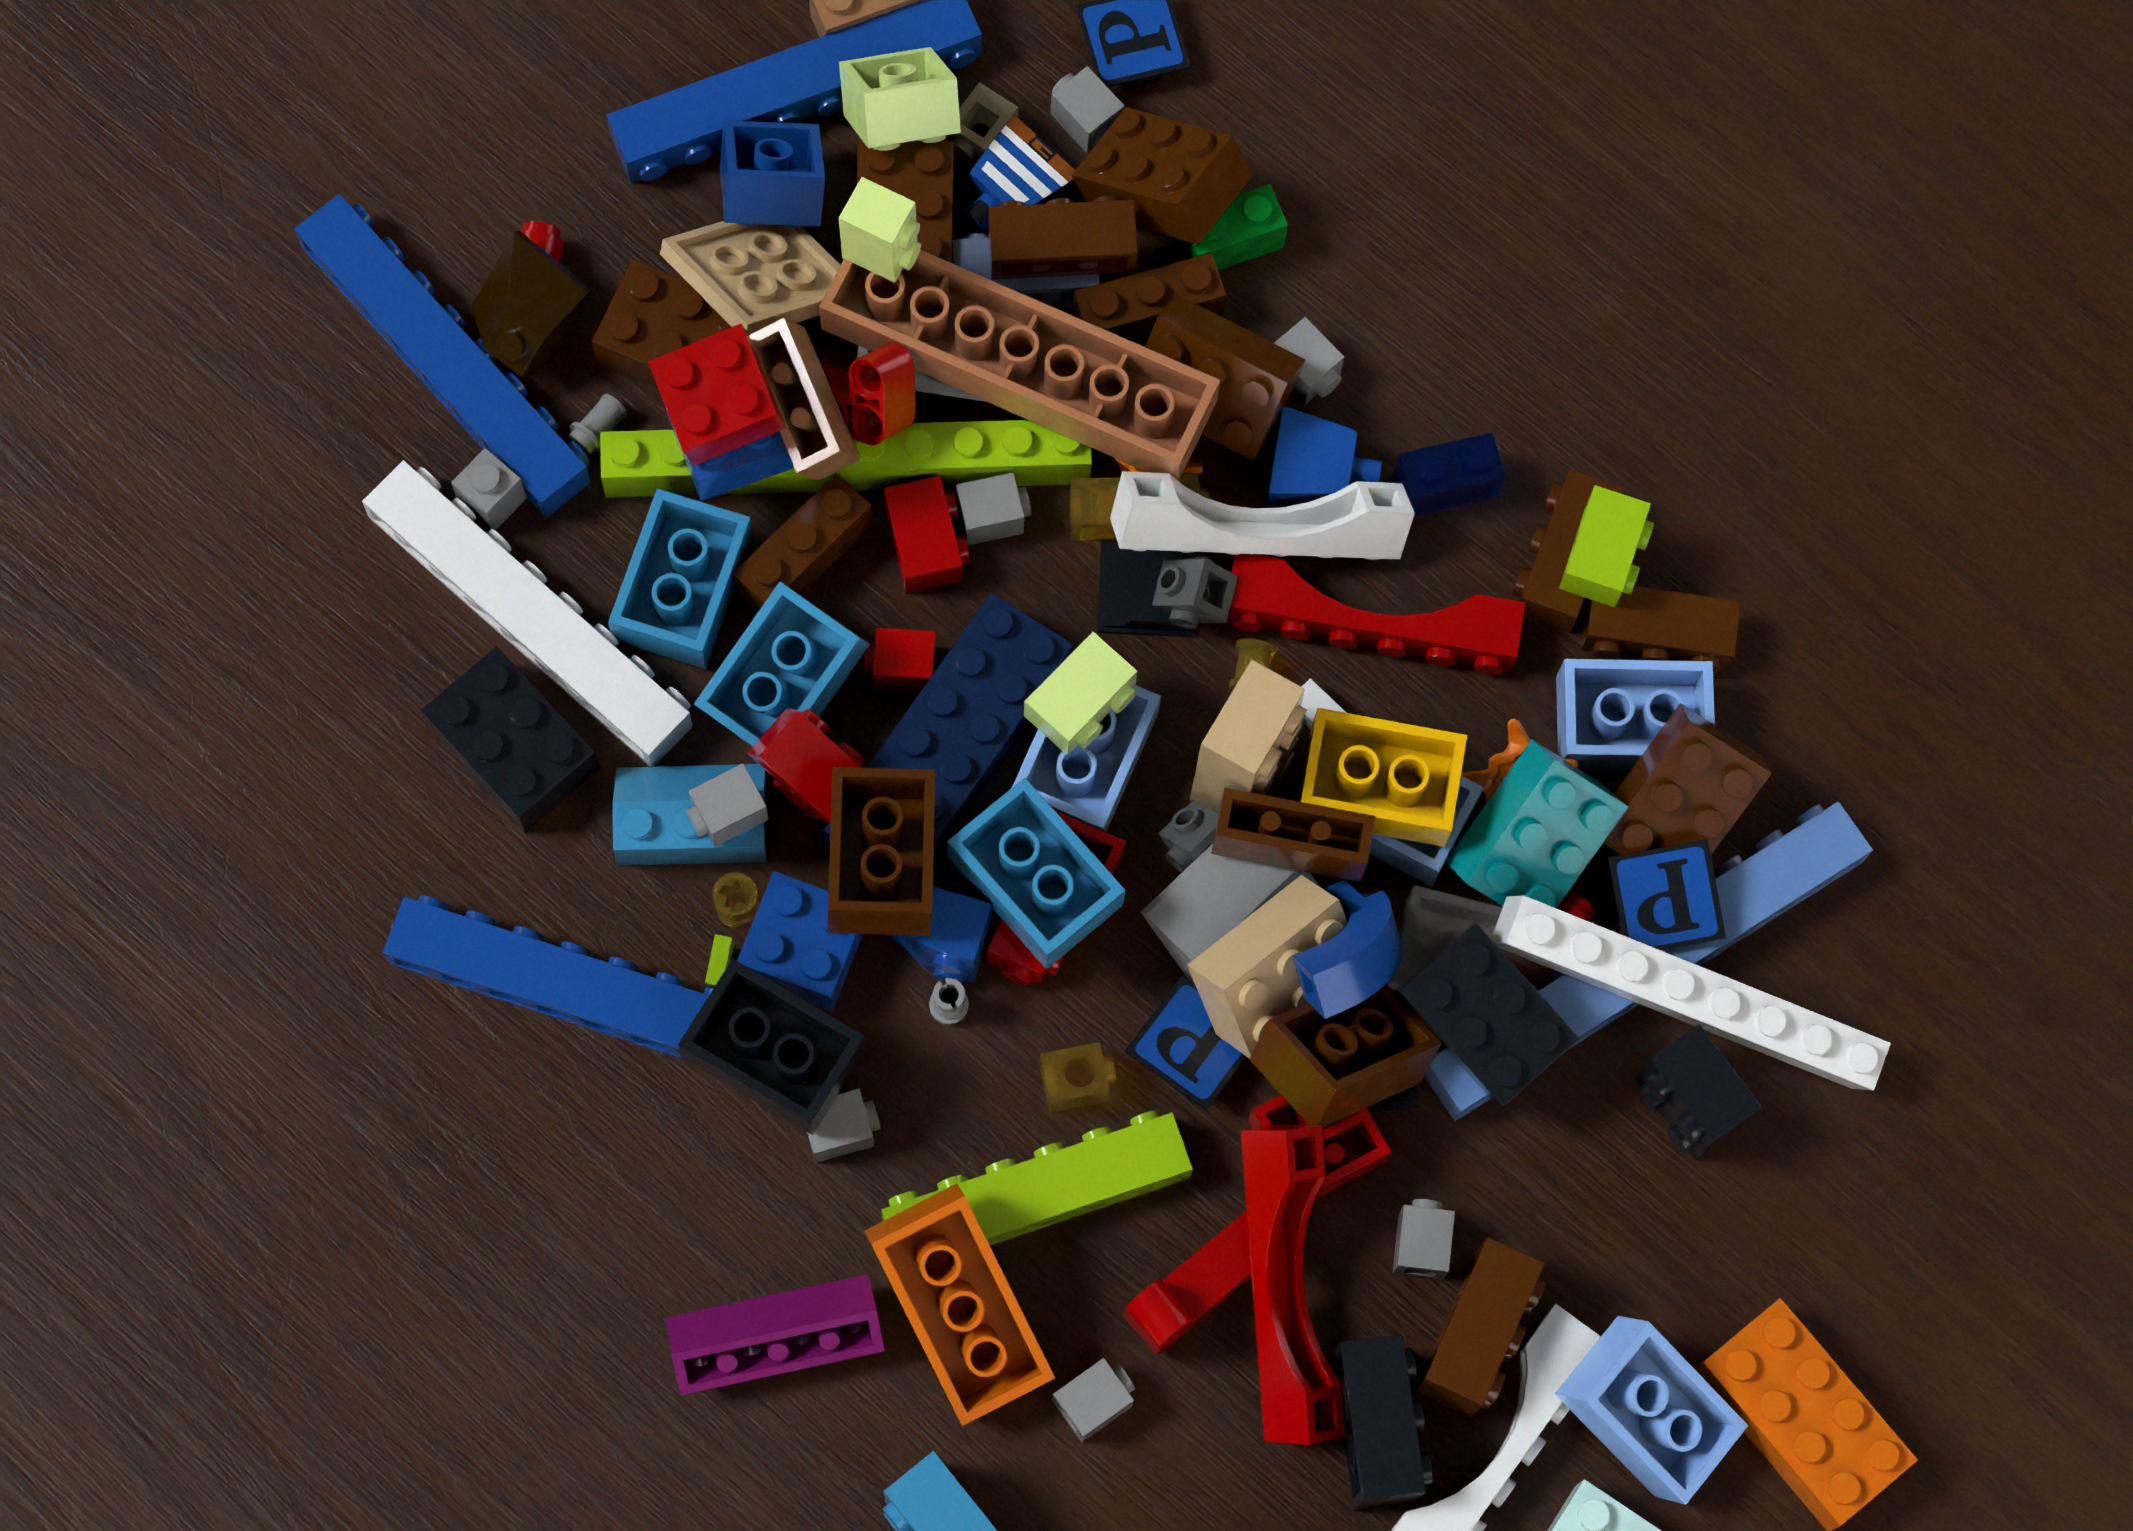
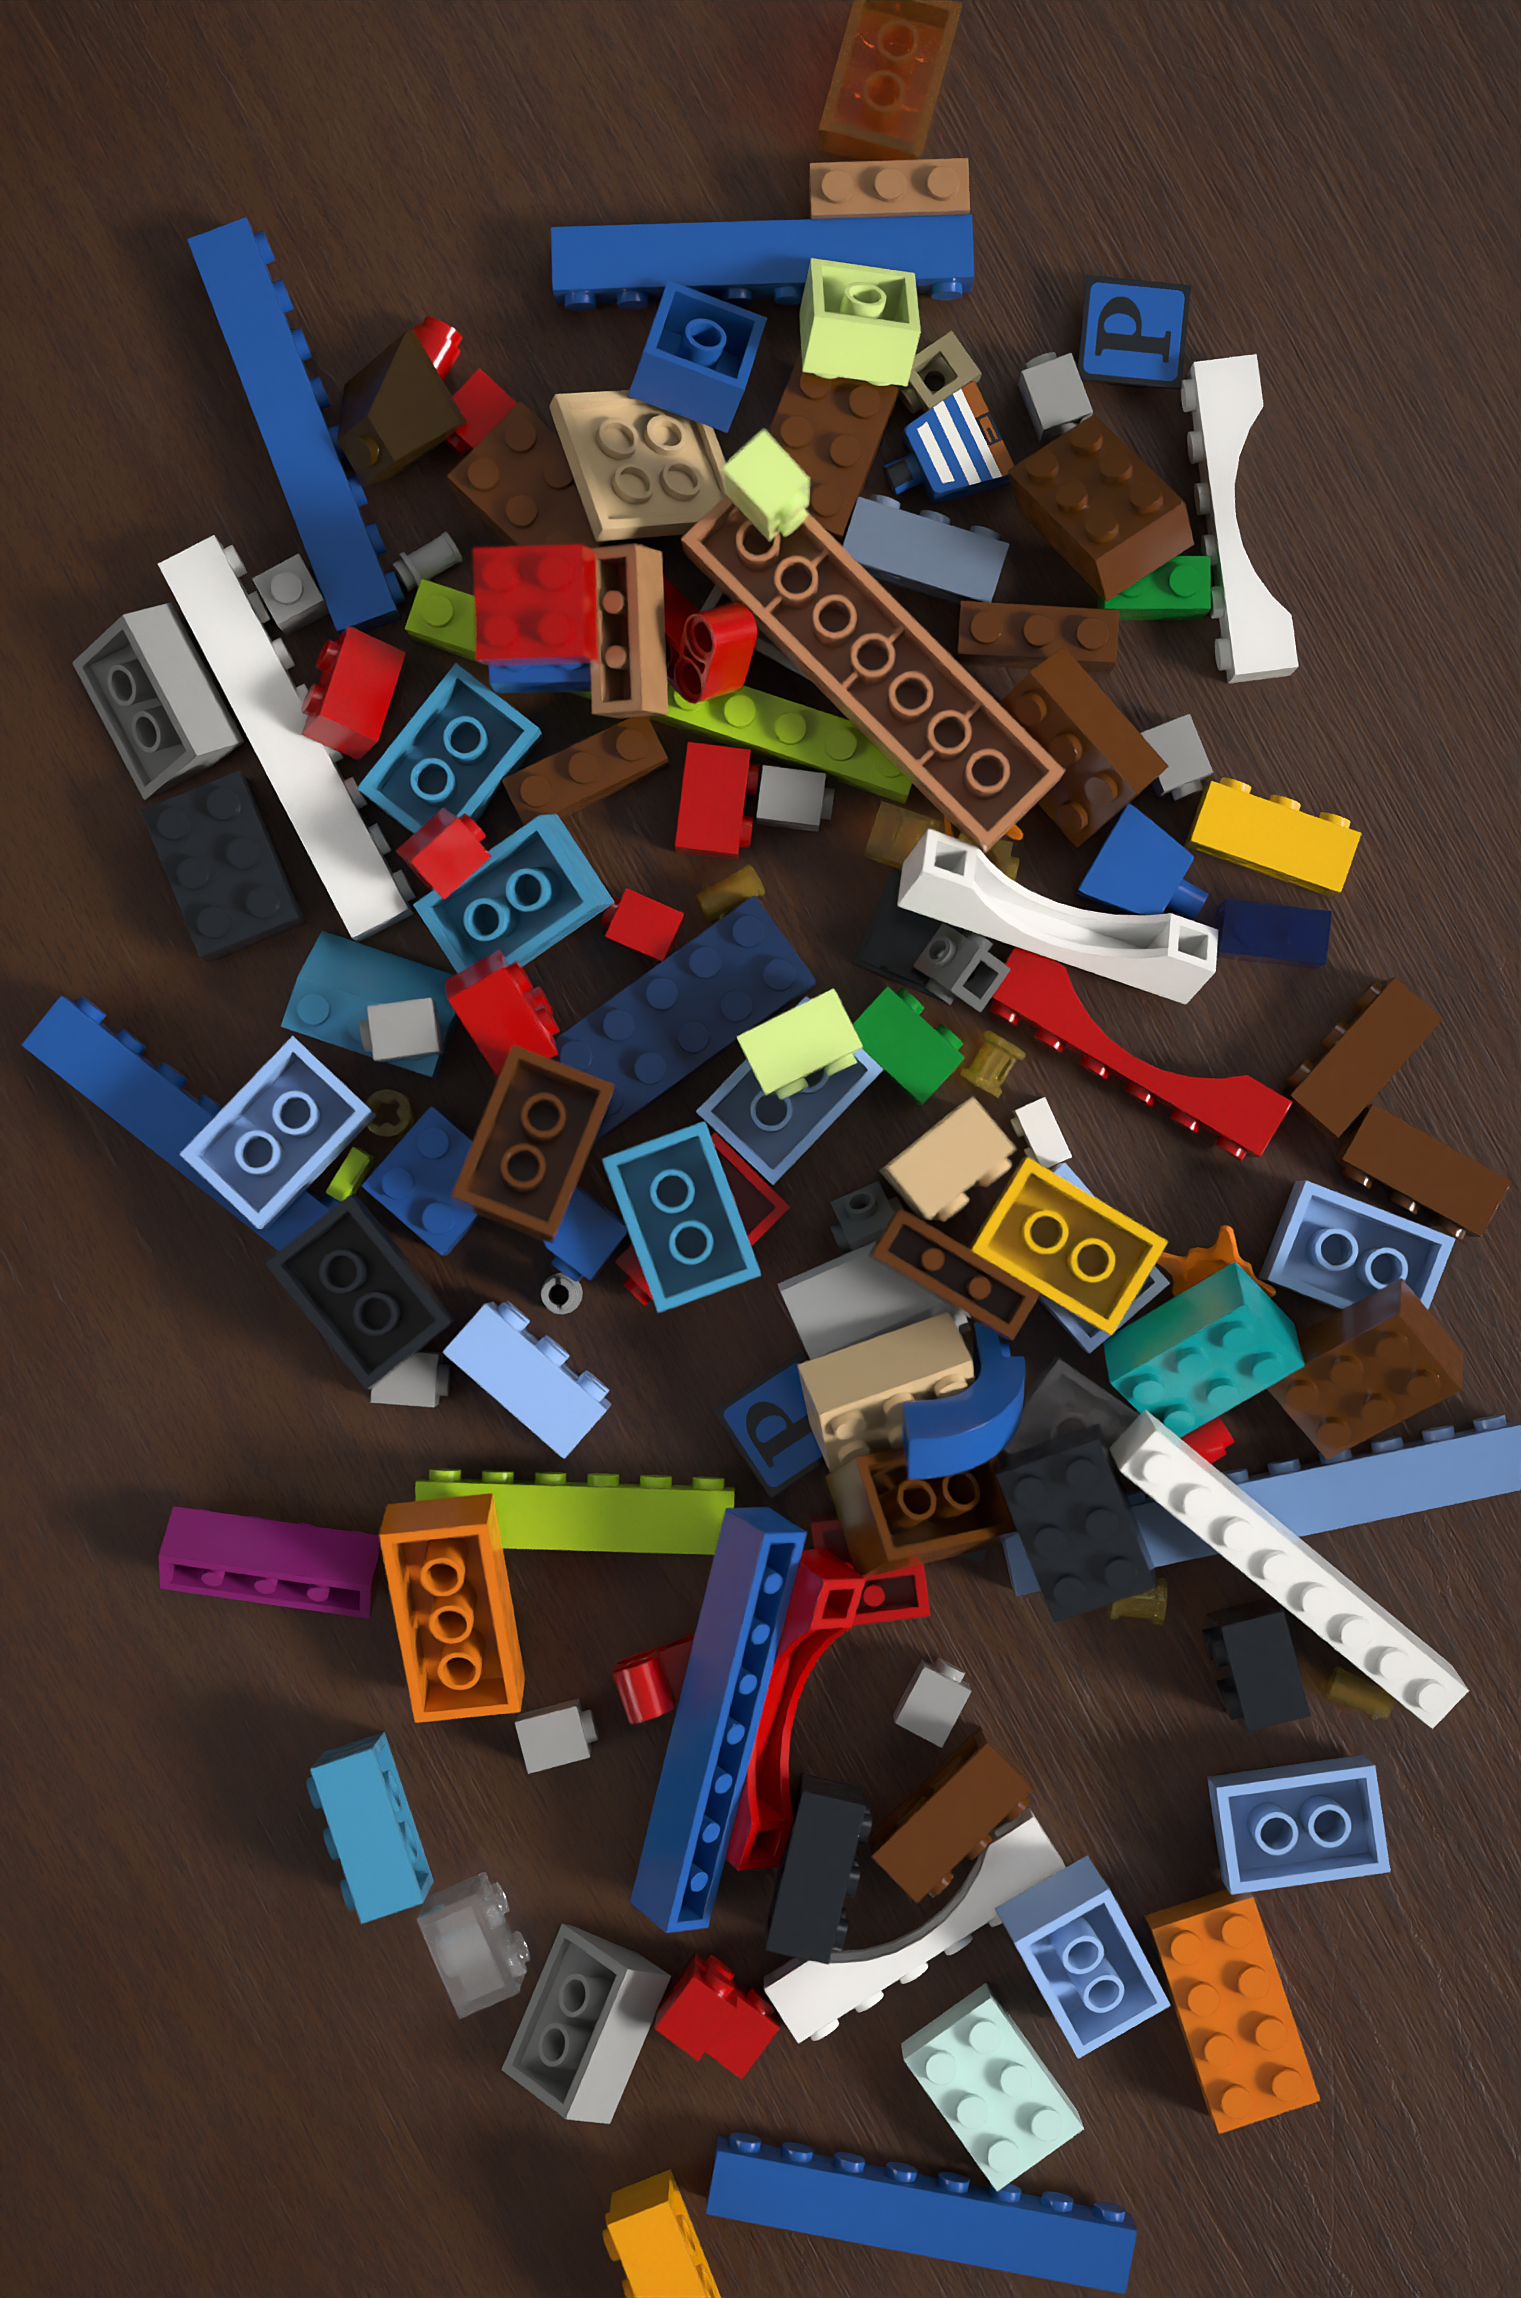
camera: 25 degrees right, 15 degrees up
(398, 620) = (157, 699): none -> light grey slope
(573, 548) = (352, 693): none -> red brick
(603, 276) = (483, 408): none -> red brick
(647, 936) = (278, 1134): none -> light blue brick
(707, 643) = (445, 852): none -> red brick
(949, 1077) = (529, 1376): none -> light blue brick
(959, 613) = (729, 893): none -> clear yellow pin
(1060, 1093) = (634, 1422): clear yellow brick -> none
(1062, 238) = (969, 540): reddish brown brick -> none
(1183, 678) = (906, 1045): none -> green brick
(1237, 1314) = (717, 1718): none -> blue brick
(1329, 232) = (1253, 624): none -> white arch
(1418, 397) = (1273, 837): none -> yellow brick
(1569, 1083) = (1144, 1605): none -> clear yellow bush
(1606, 545) = (1397, 1080): lime brick -> none
(1668, 895) = (1307, 1465): piece -> none
(1793, 1223) = (1298, 1824): none -> light blue brick
(1800, 1094) = (1359, 1694): none -> clear yellow pin

